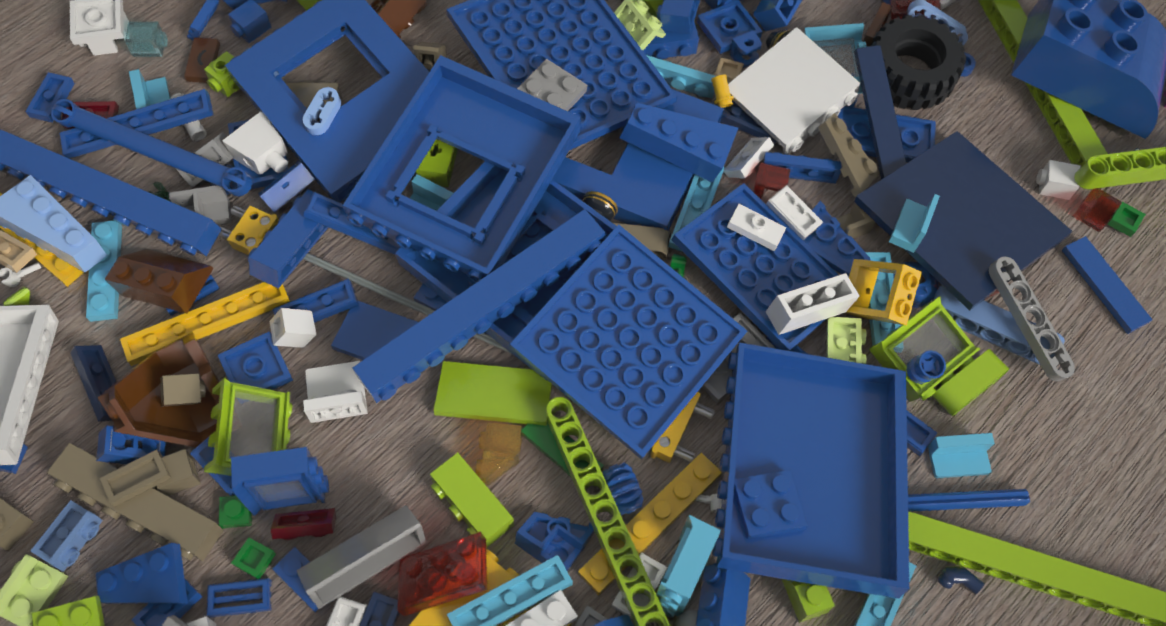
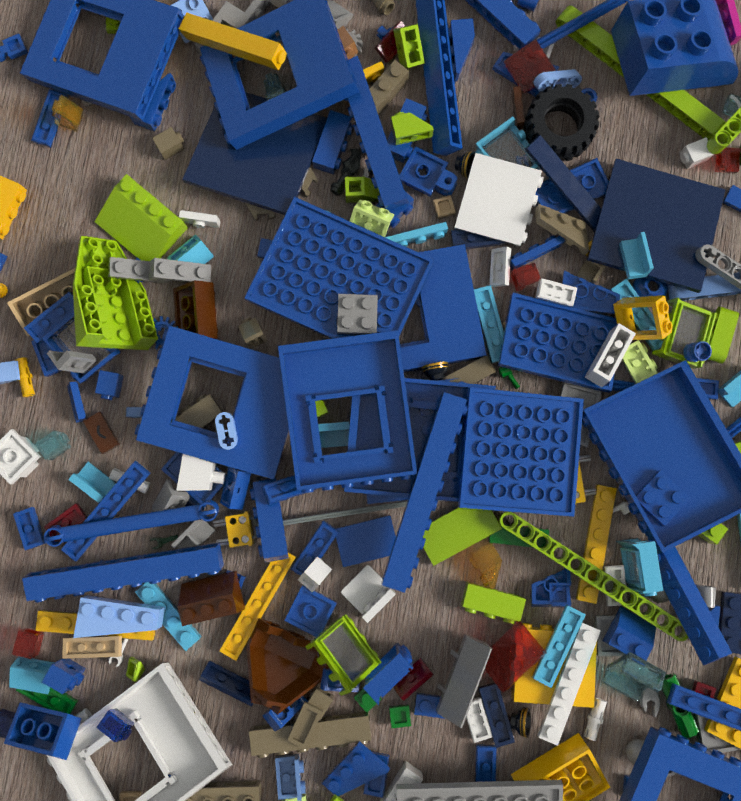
camera: 30 degrees left, 20 degrees up
(181, 390) = (284, 657): dark tan brick -> none
(219, 77) = (126, 437): lime brick -> none
(243, 609) = (392, 743): blue tile -> none
(624, 487) = (572, 539): blue gear -> none
(680, 139) = (465, 291): blue wedge -> none
(722, 91) = (459, 236): yellow pin -> none
(756, 227) = (542, 321): white plate -> none

